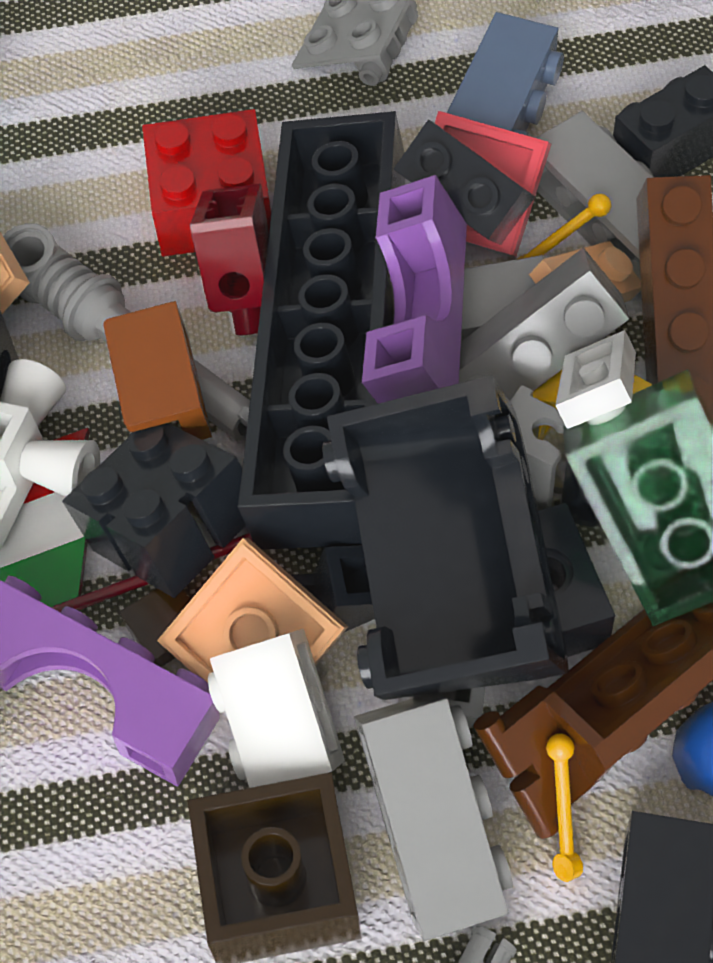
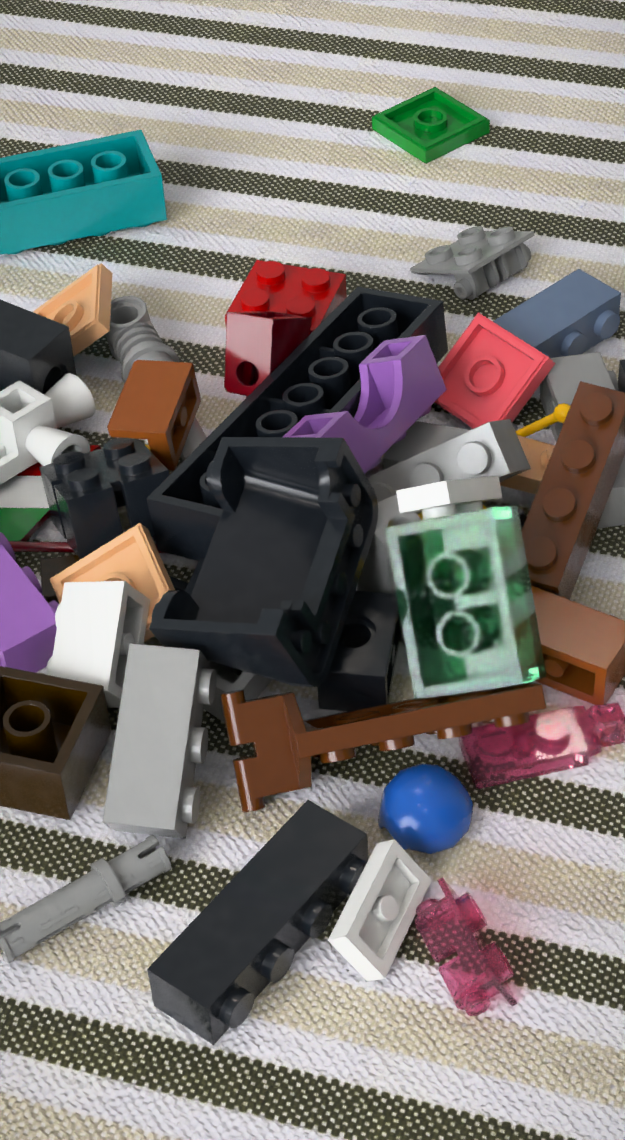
camera: 25 degrees right, 15 degrees down
(480, 191) = (468, 366): black brick -> none
(567, 863) = (250, 832): yellow hinge -> none

